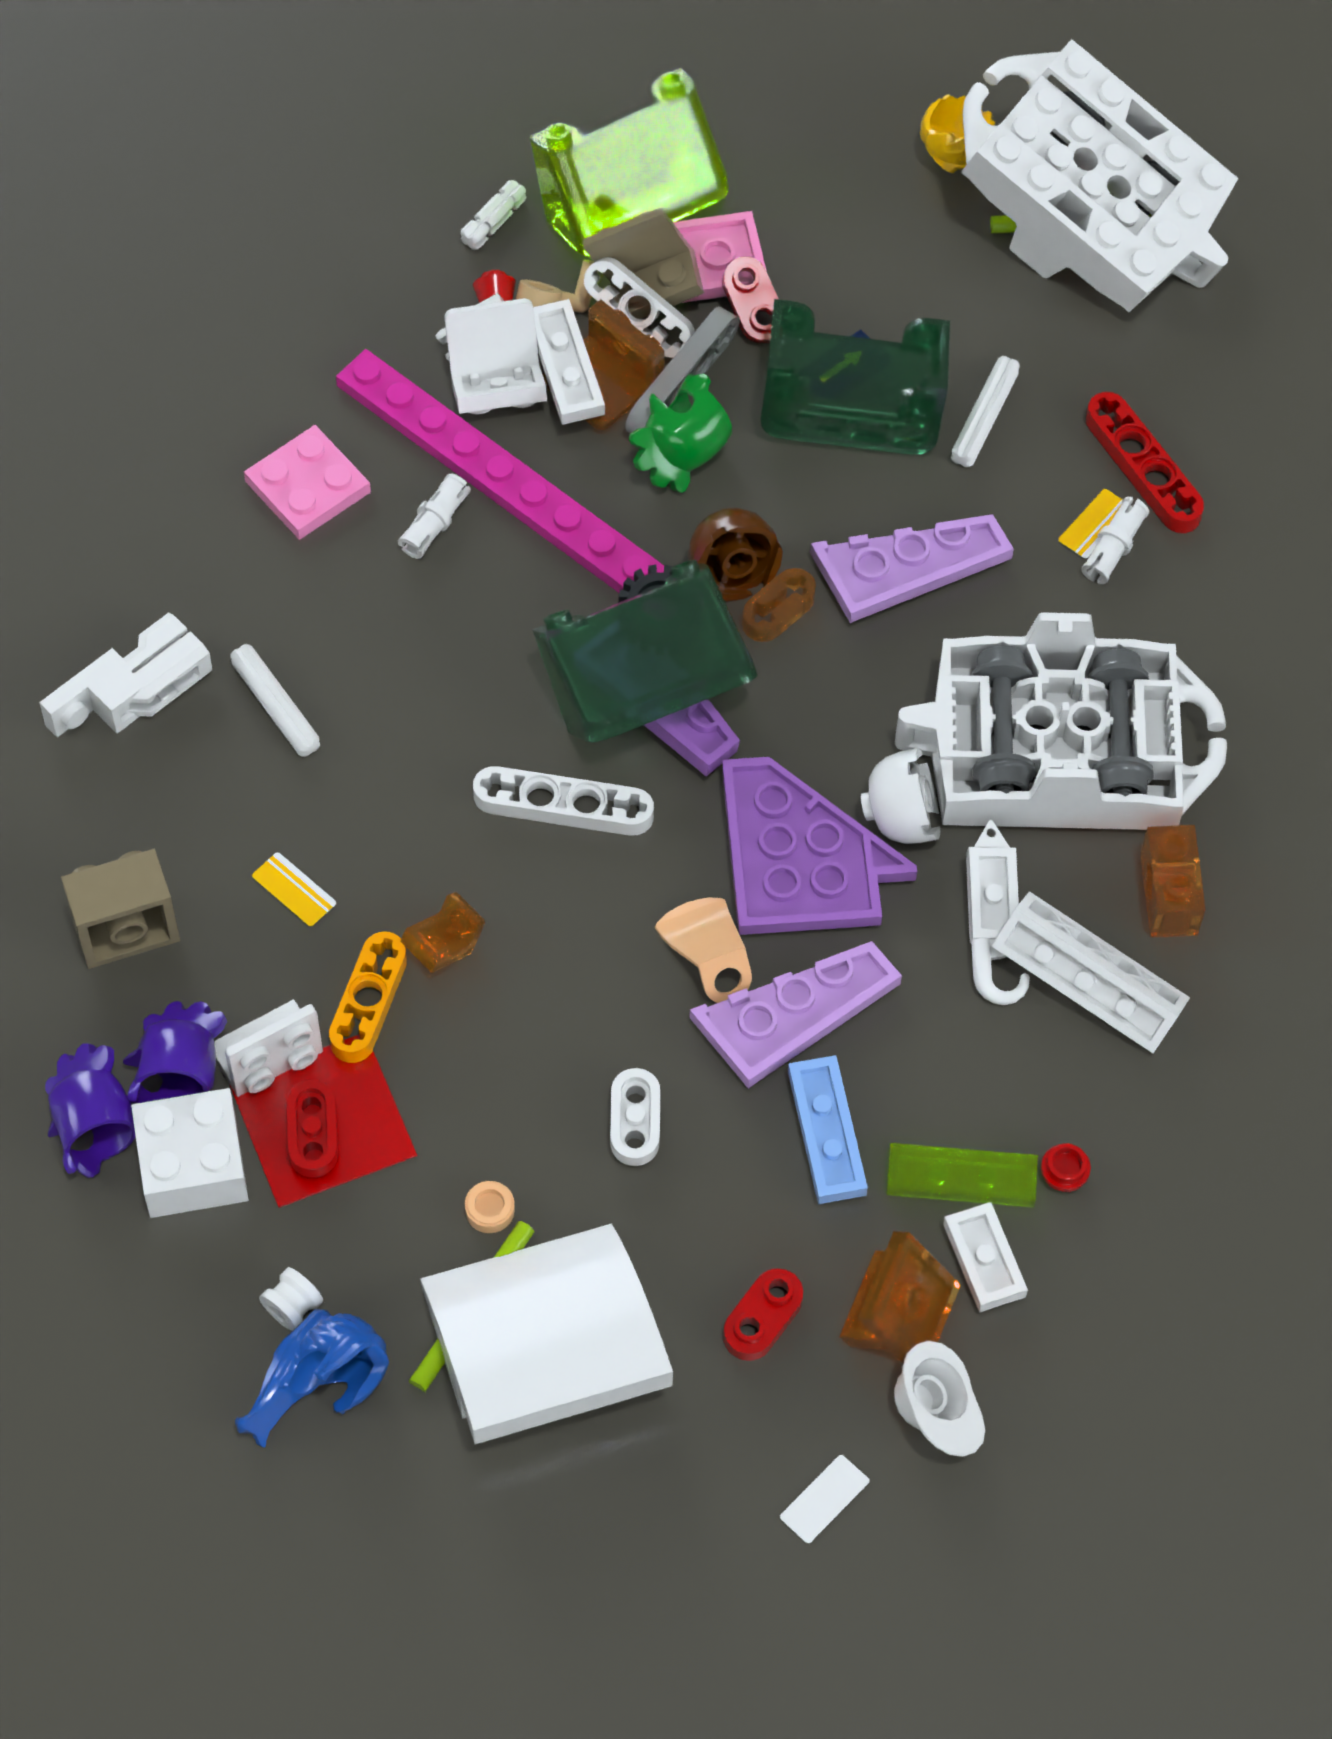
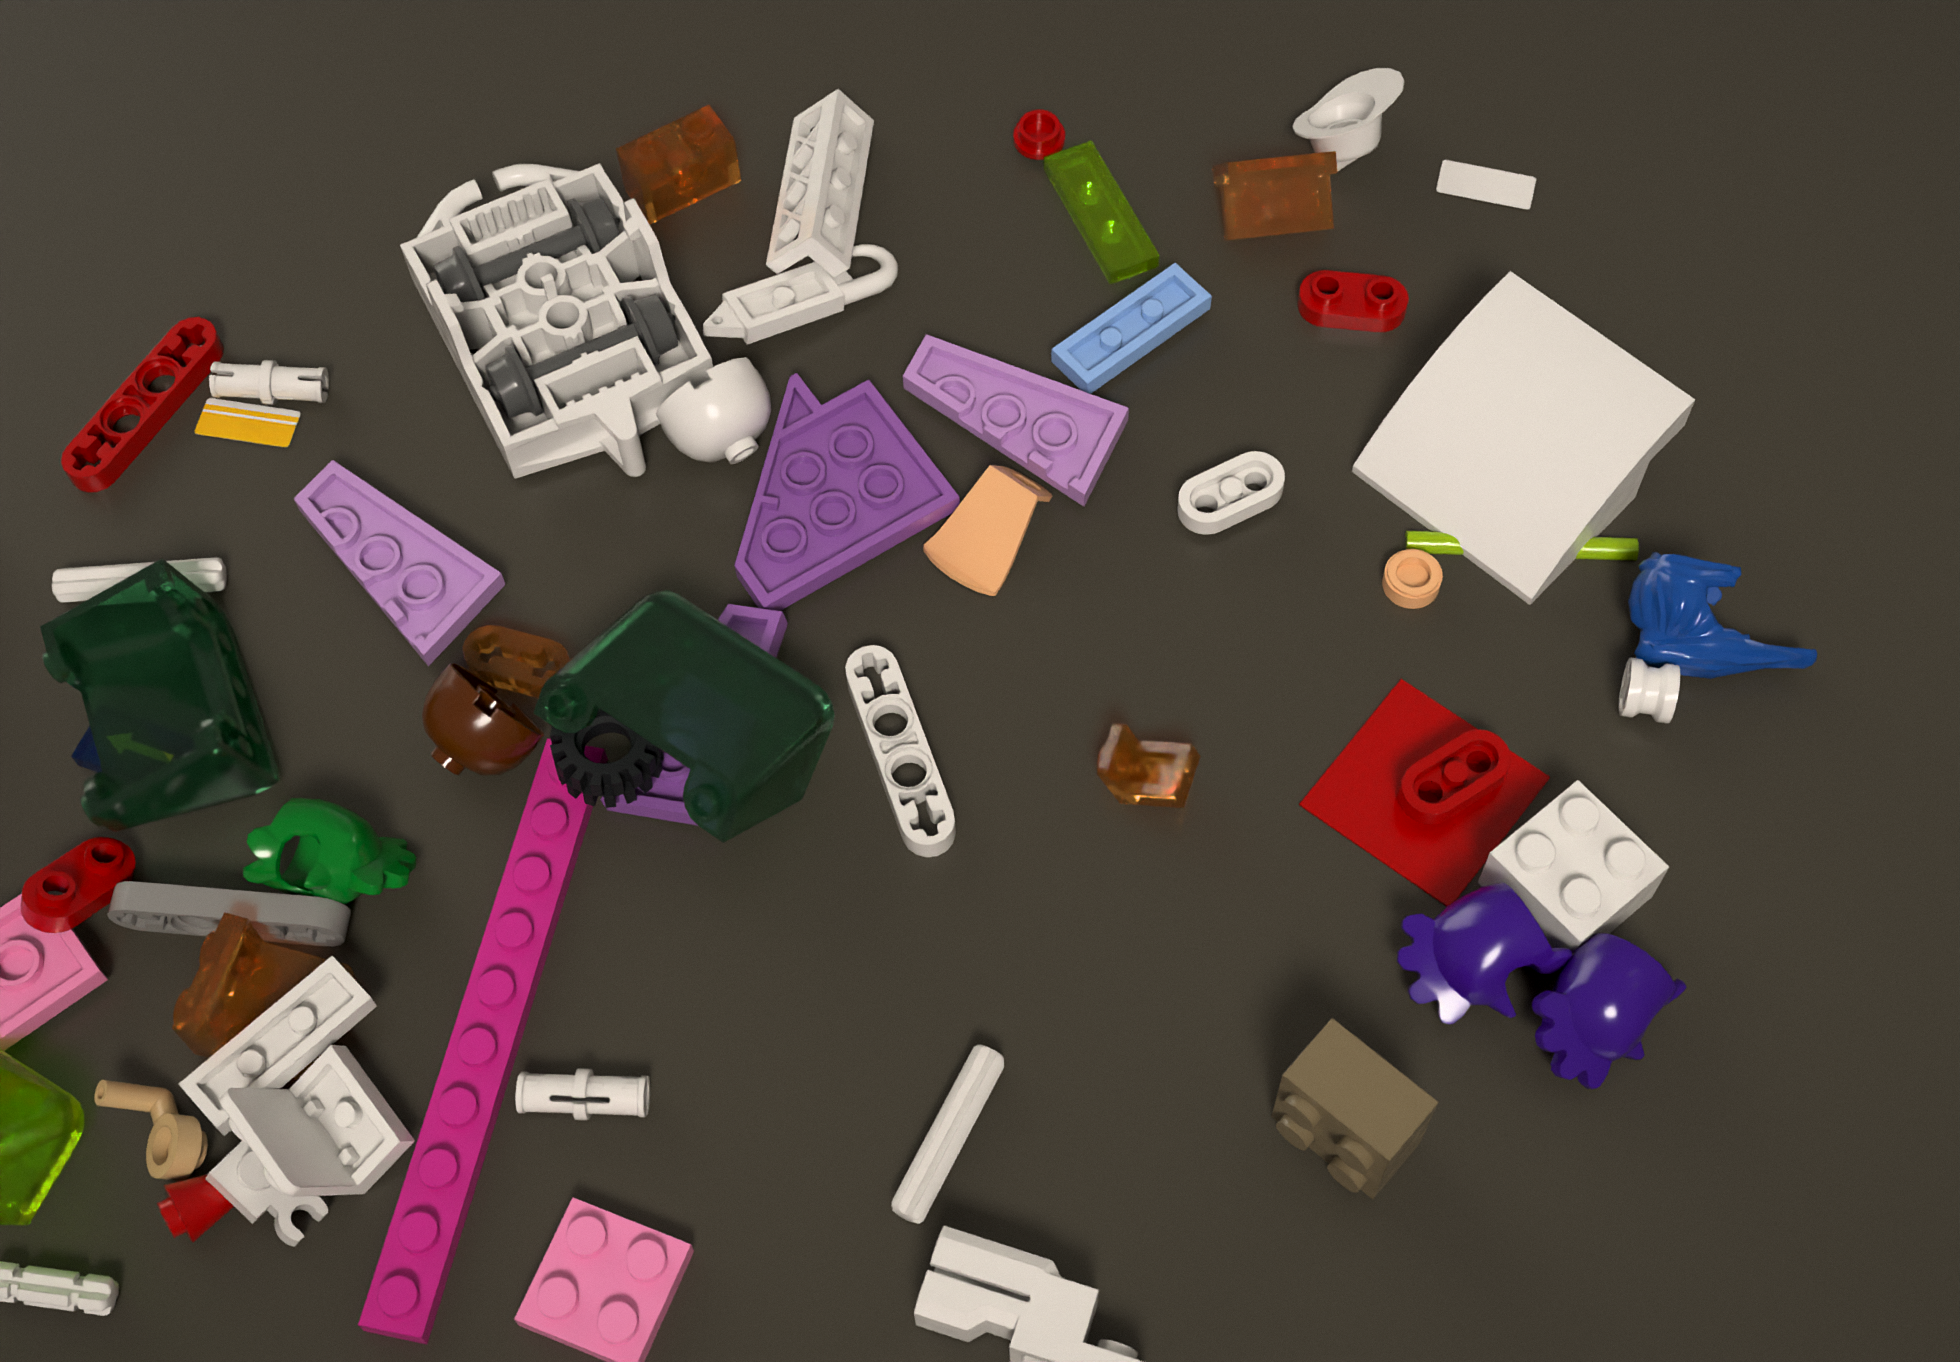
camera: 115 degrees left, 0 degrees up
(269, 1047) = (1397, 860): white bracket -> none
(294, 889) = (1176, 976): yellow sticker -> none
(373, 1016) = (1277, 792): light orange beam -> none
(620, 278) = (130, 1013): white beam -> none
(654, 253) = (90, 1011): dark tan bracket -> none
(985, 1257) = (1175, 154): white plate -> none

